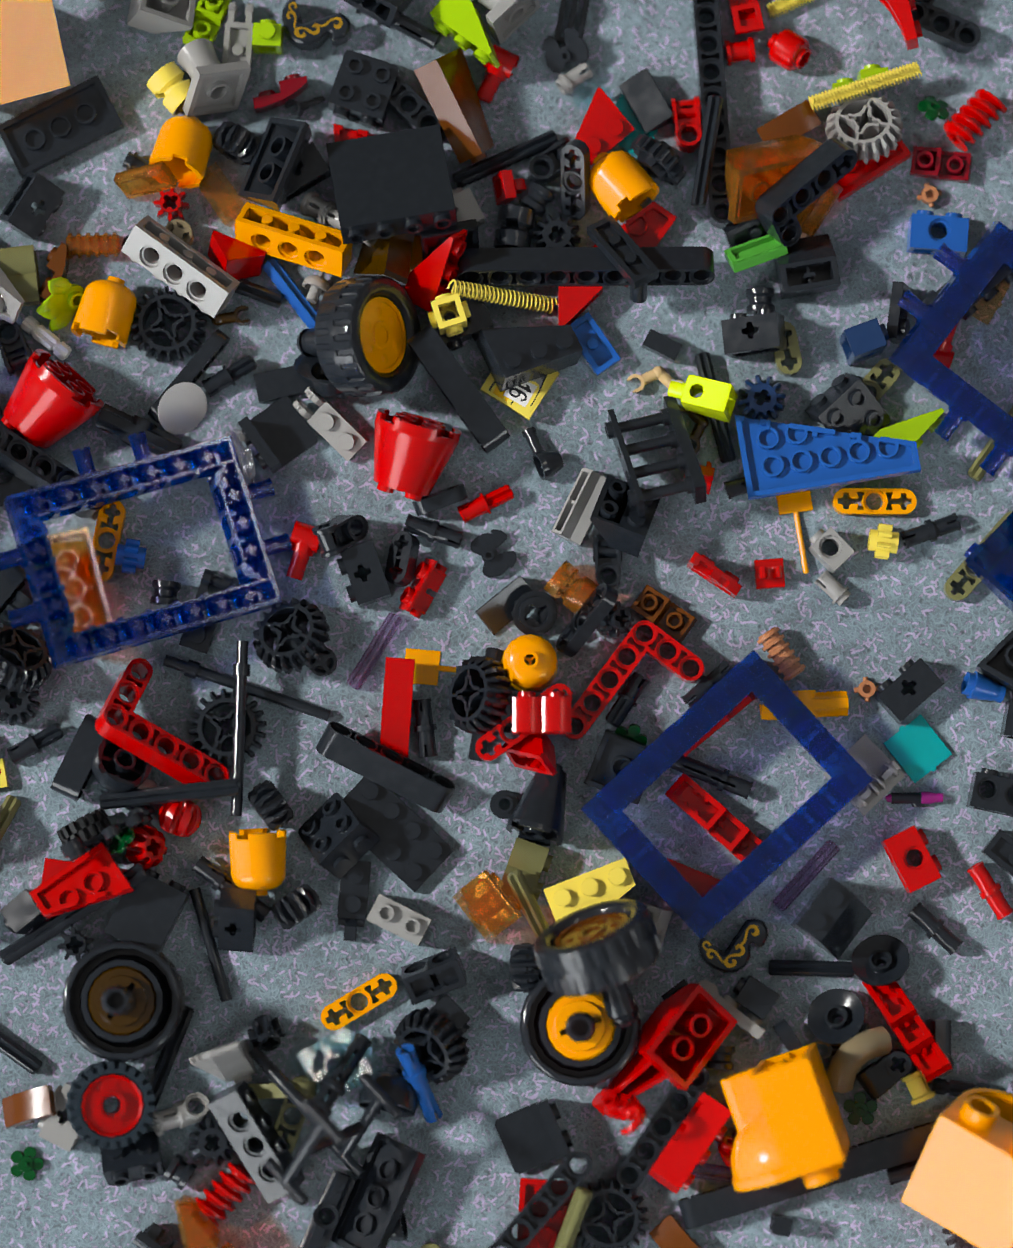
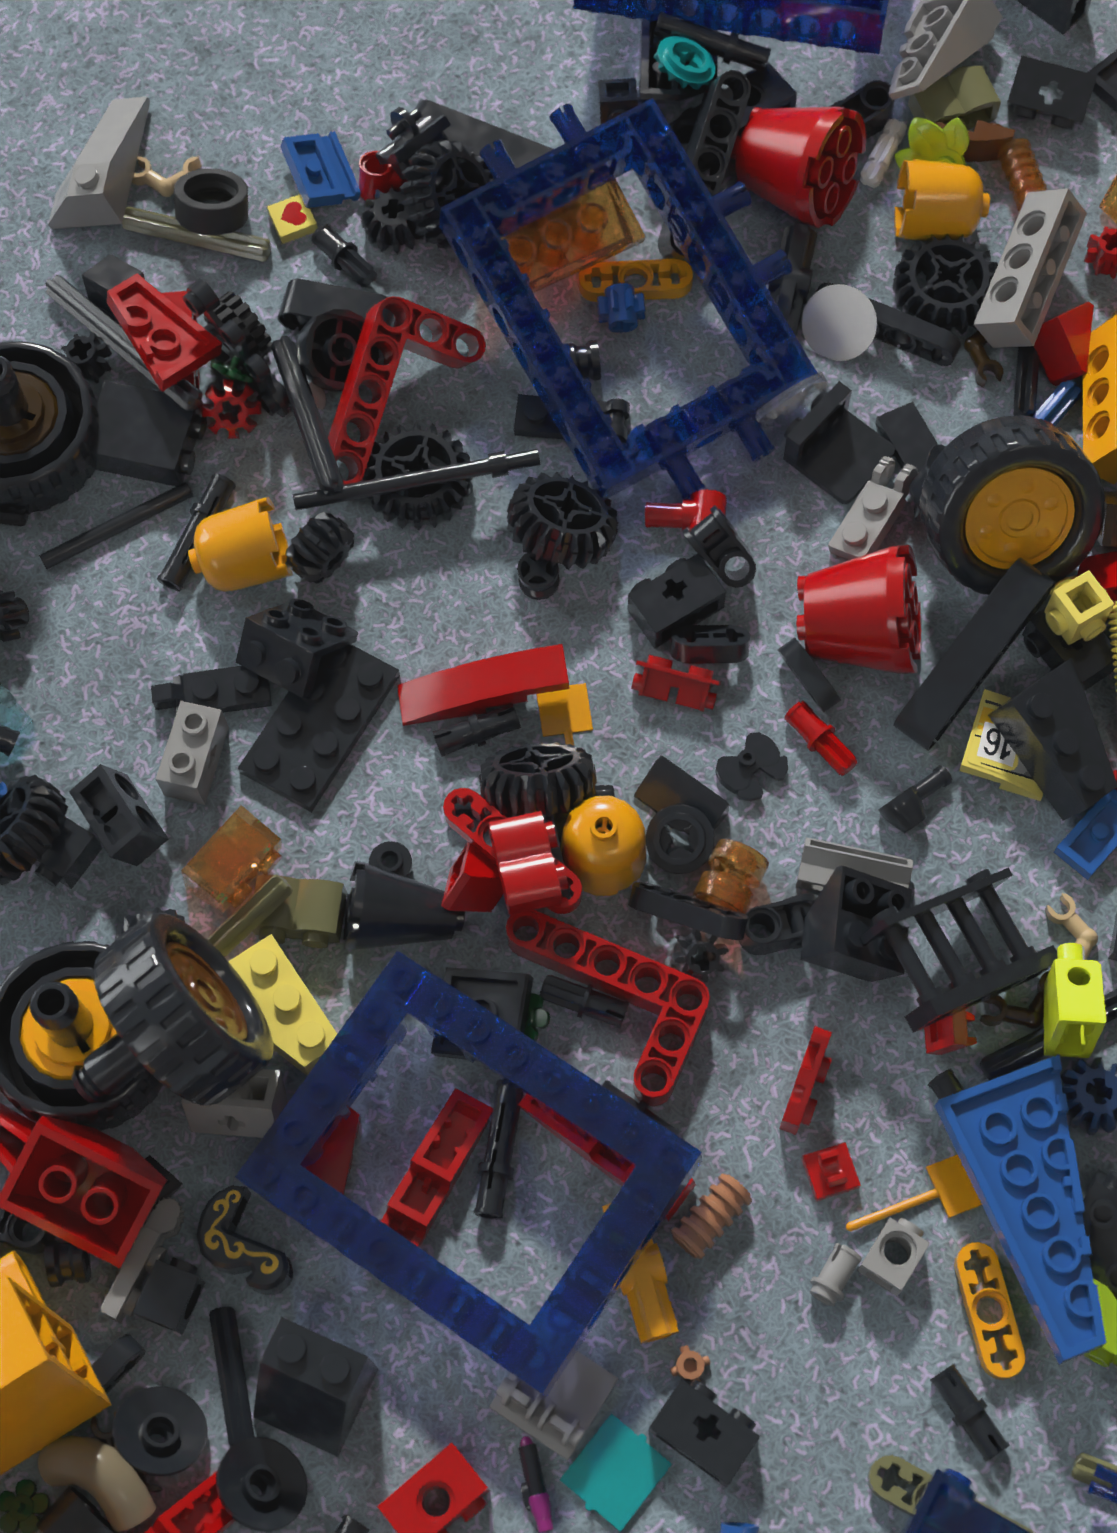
camera: 80 degrees right, 15 degrees down
(179, 228) = (1082, 264): dark tan wheel -> none
(180, 818) = (279, 443): red piece -> none
(193, 669) = (487, 422): black bar -> none
(229, 375) = (901, 373): black axle -> none
(235, 919) = (150, 537): black brick -> none
(296, 906) = (184, 611): black gear -> none
(357, 1013) = (70, 714): light orange beam -> none
(374, 651) = (573, 640): clear purple axle -> none
(385, 767) = (406, 684): black beam -> none
(433, 531) = (760, 678): black pin -> none
(663, 613) = (727, 1027): reddish brown slope -> none
(806, 875) = (376, 1335): clear purple axle -> none
(883, 541) = (930, 1336): light yellow gear -> none

